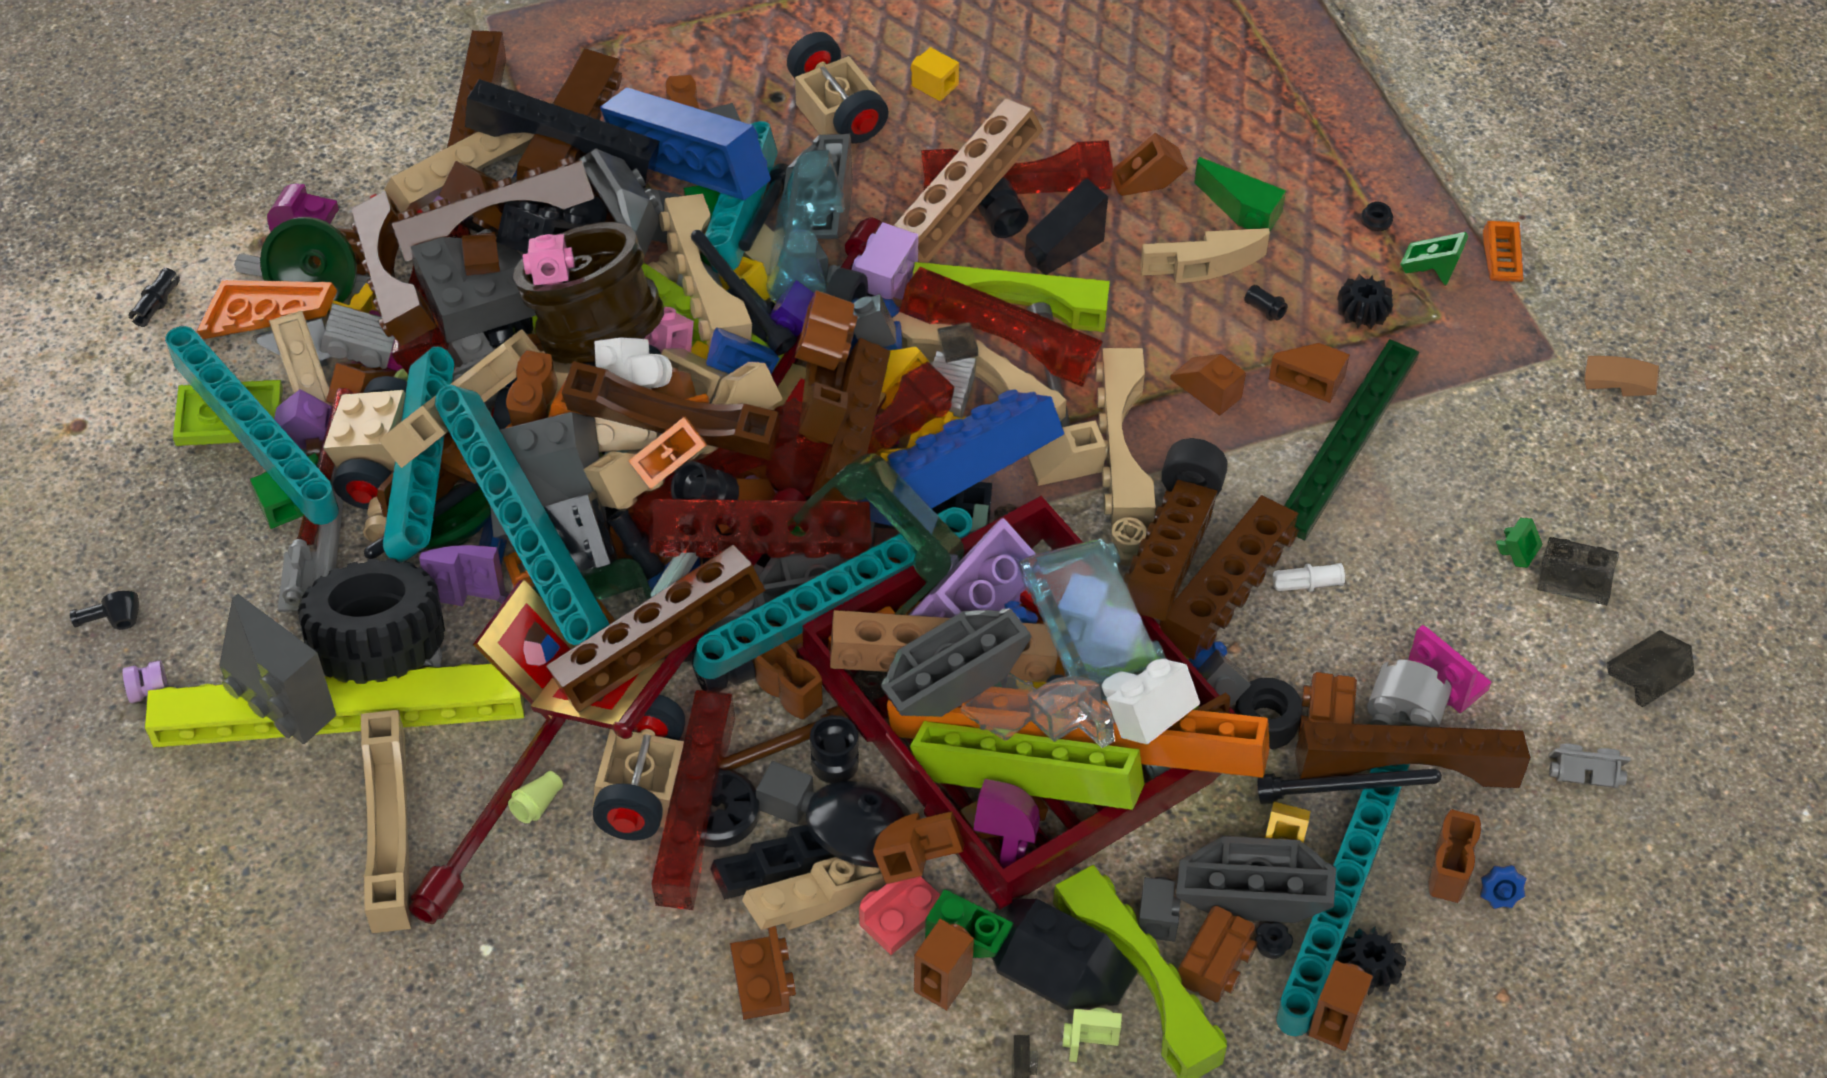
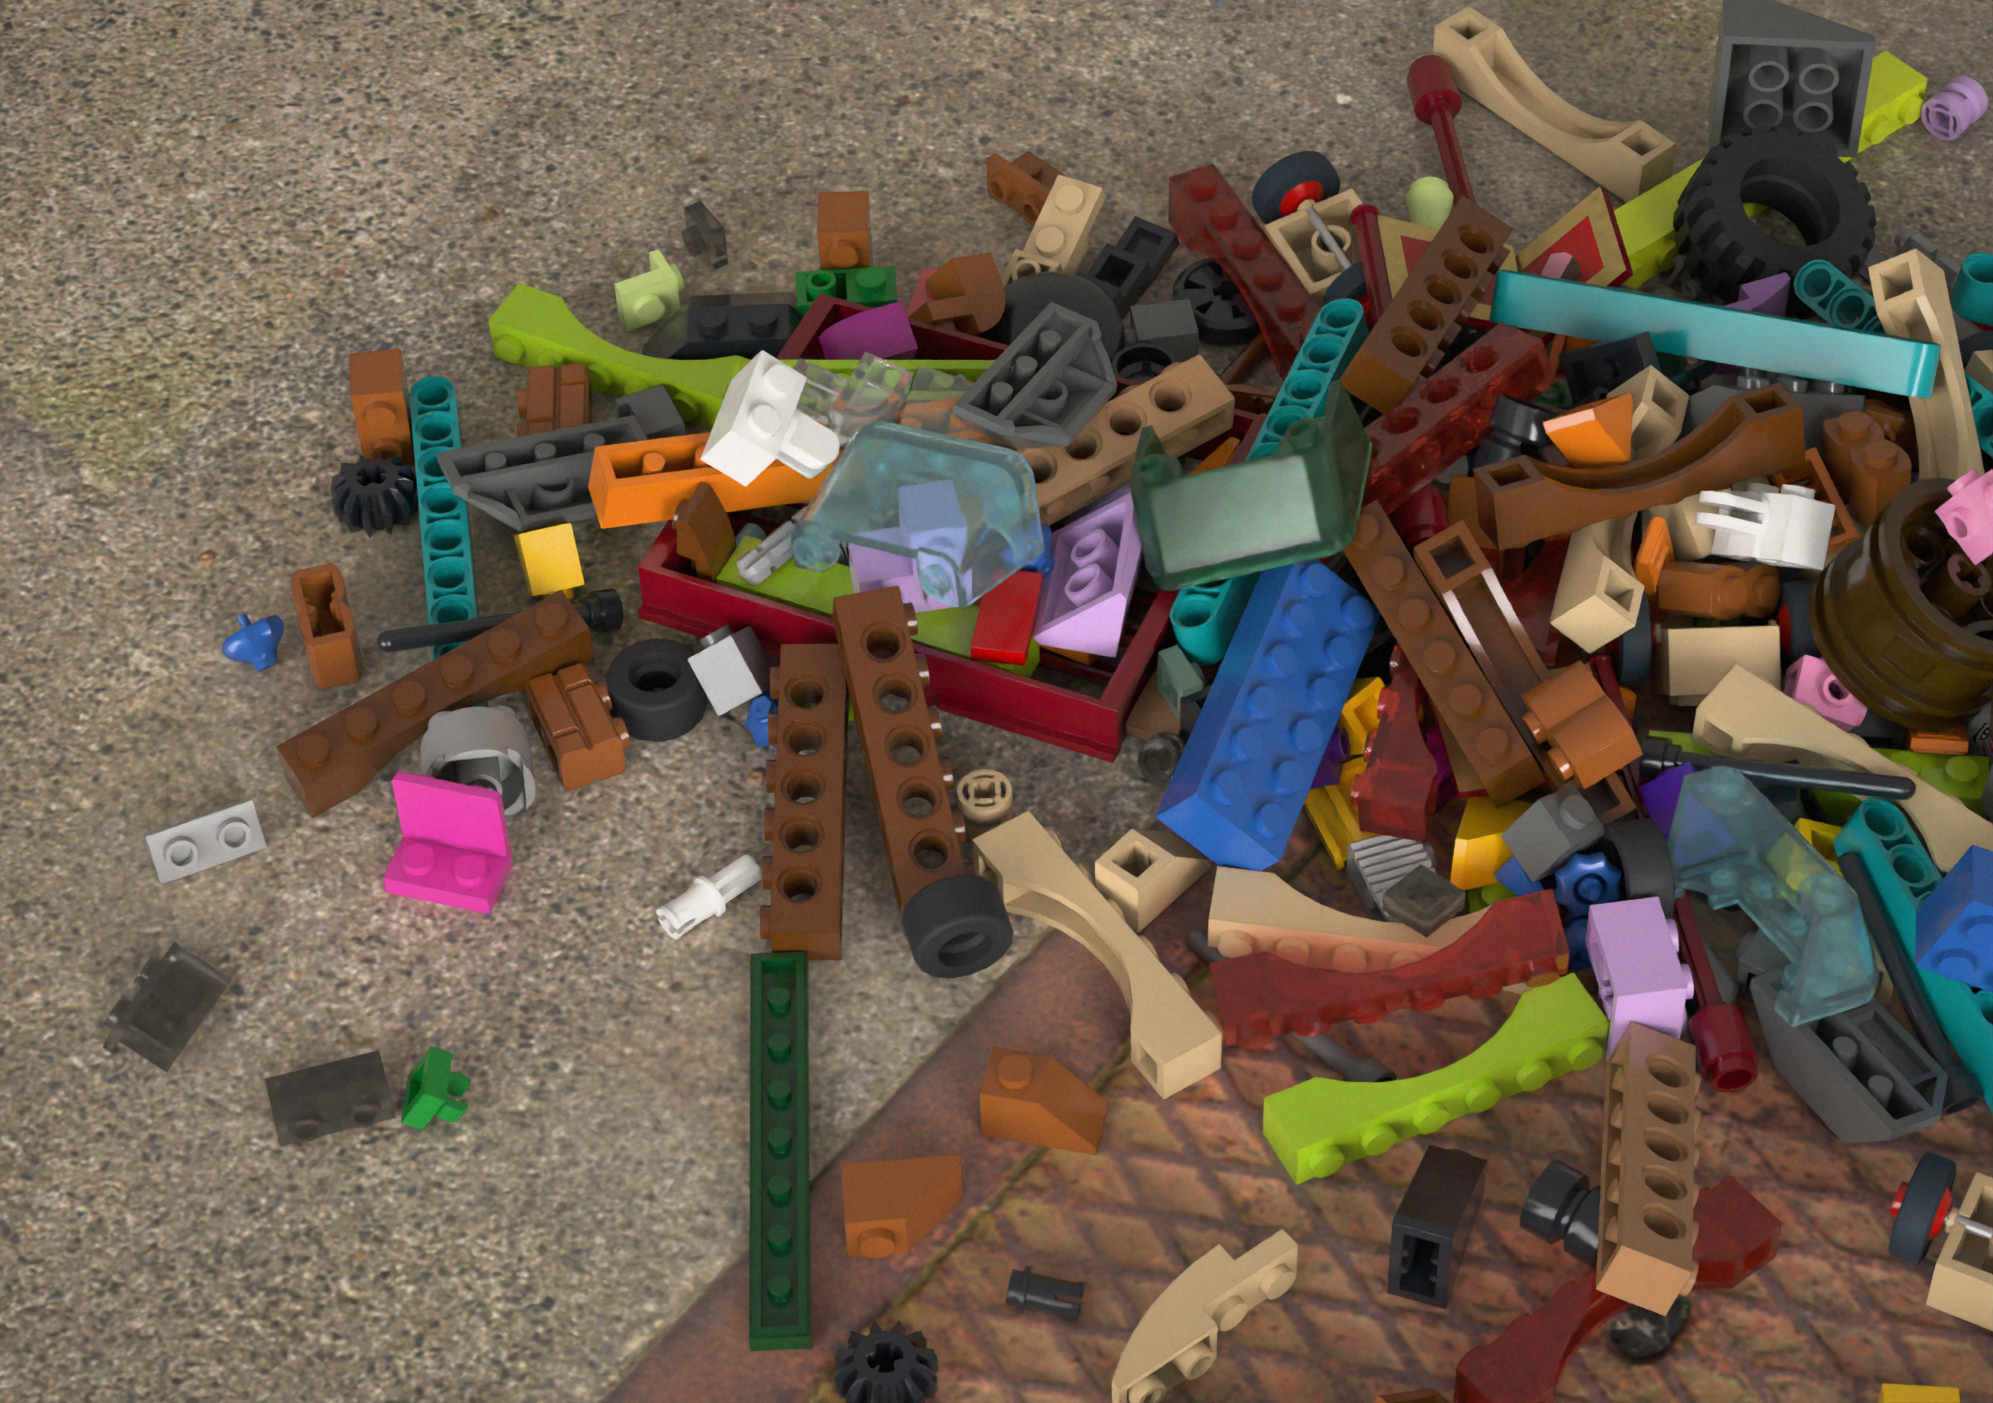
camera: 150 degrees right, 5 degrees down
(732, 351) = (1681, 691): blue slope -> none

